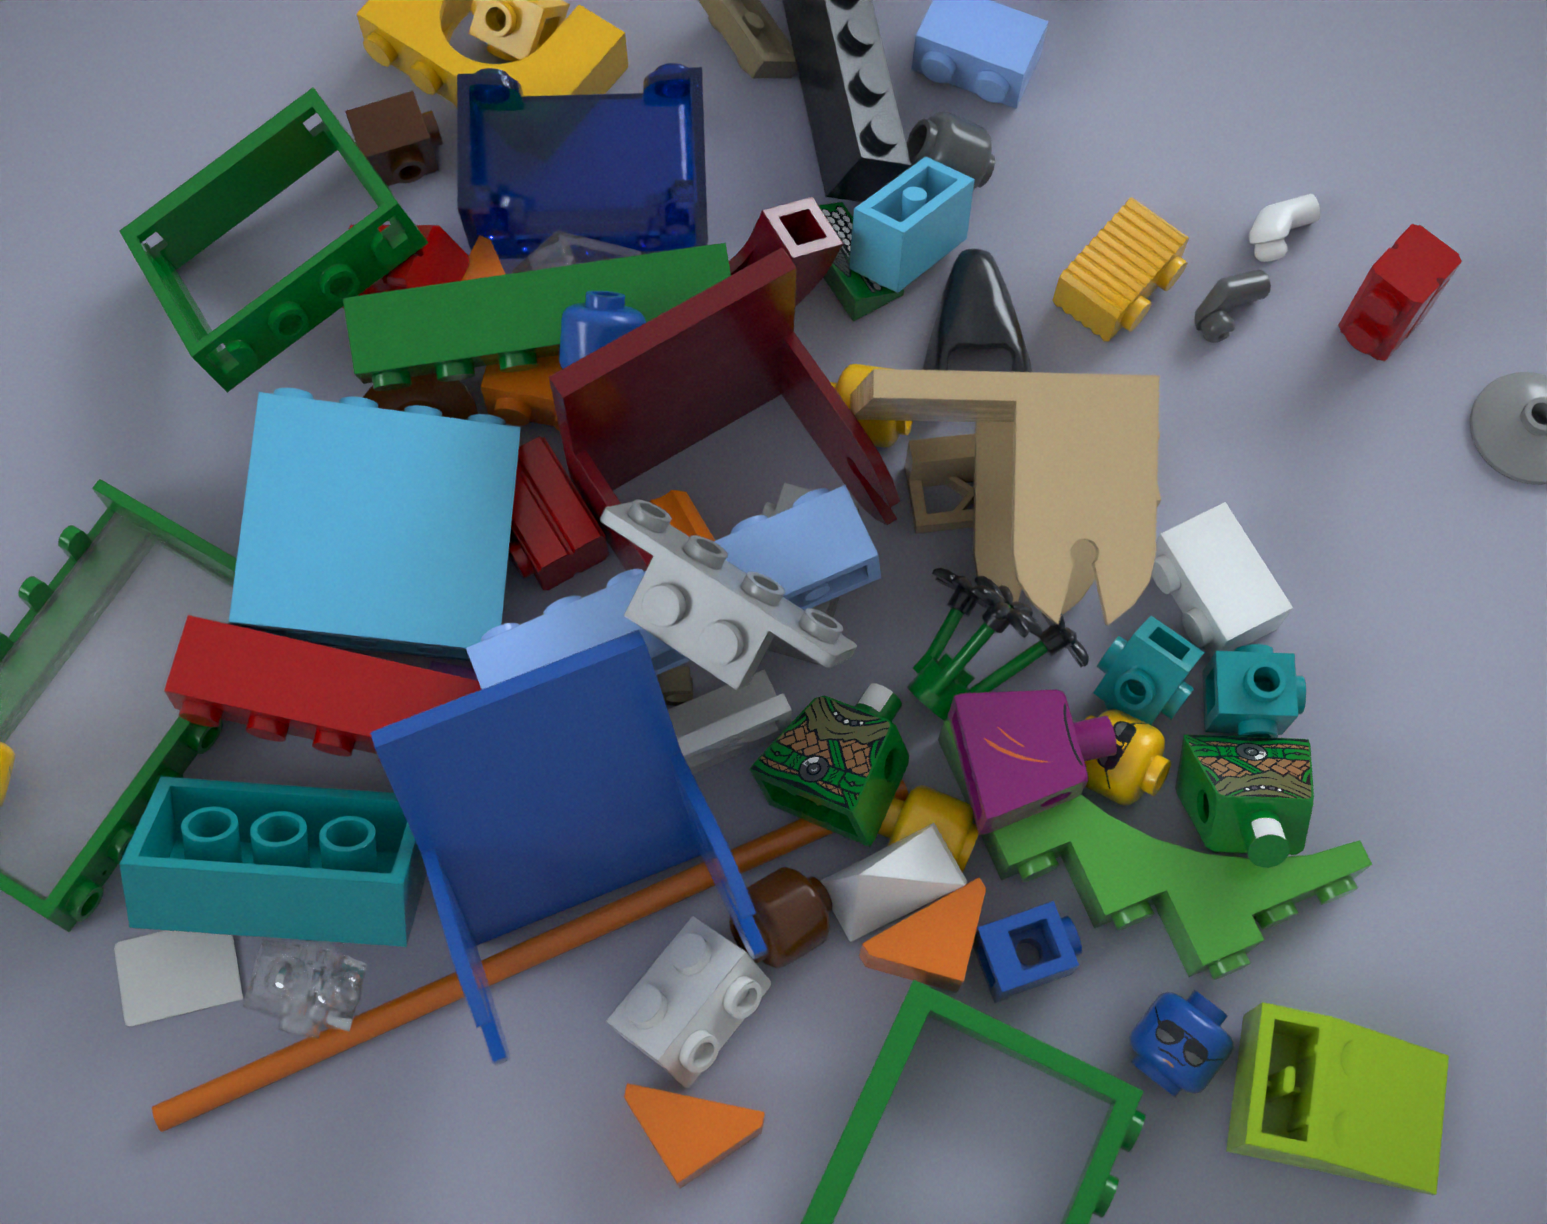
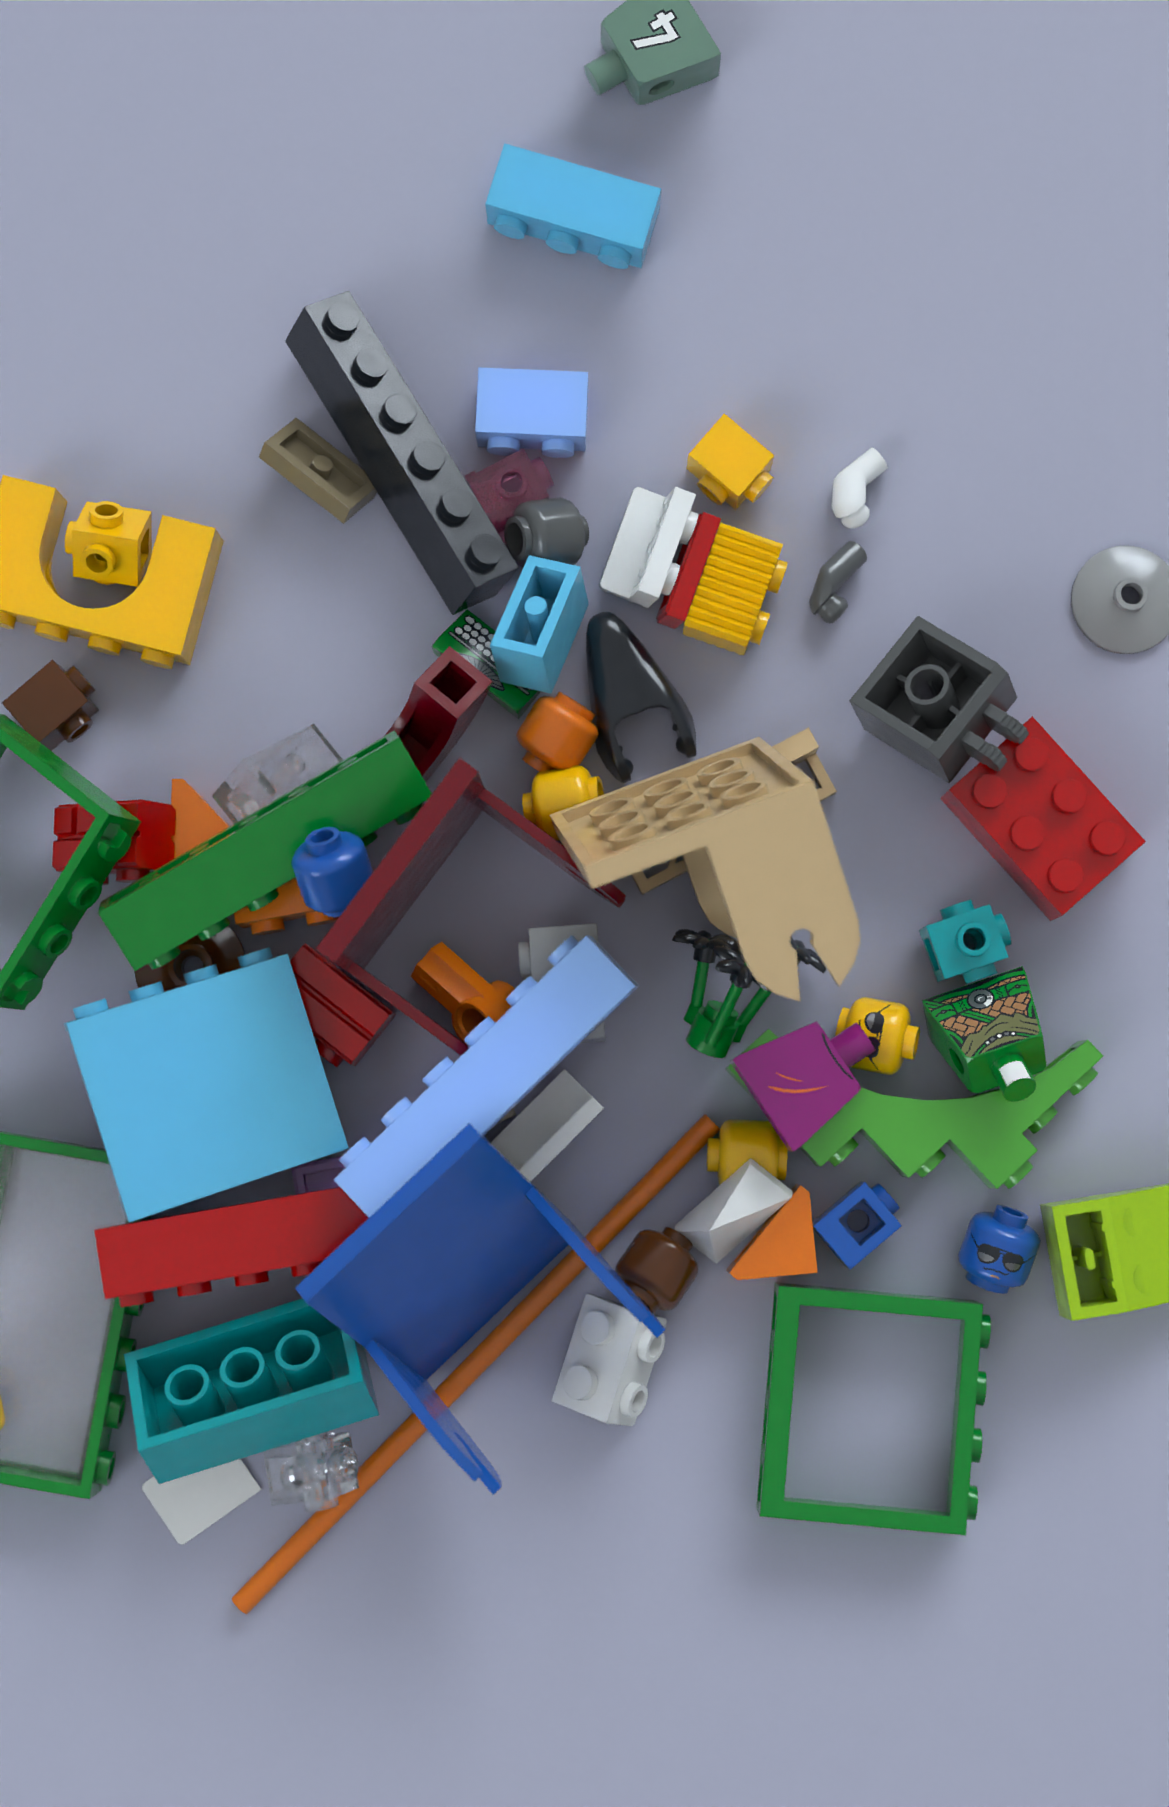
camera: 15 degrees left, 15 degrees up
(582, 164) = (233, 677): clear blue windscreen -> none
(691, 1131) = (649, 1461): orange slope -> none
(711, 606) = (521, 1080): light grey bracket -> none
(838, 764) = (656, 1131): torso -> none
(889, 334) = (557, 733): none -> orange head
(928, 93) = (497, 502): none -> clear pink brick
(1044, 200) = (646, 544): none -> white bracket
(1079, 235) = (692, 562): none -> red tile
(1148, 672) = (882, 959): teal brick -> none
(1160, 156) = (730, 464): none -> yellow brick
(1218, 581) = (907, 853): white brick -> none
(1304, 436) = (938, 702): none -> dark grey hinge
(1377, 599) = (1043, 821): none -> red brick
(1398, 292) = (978, 534): red brick -> none

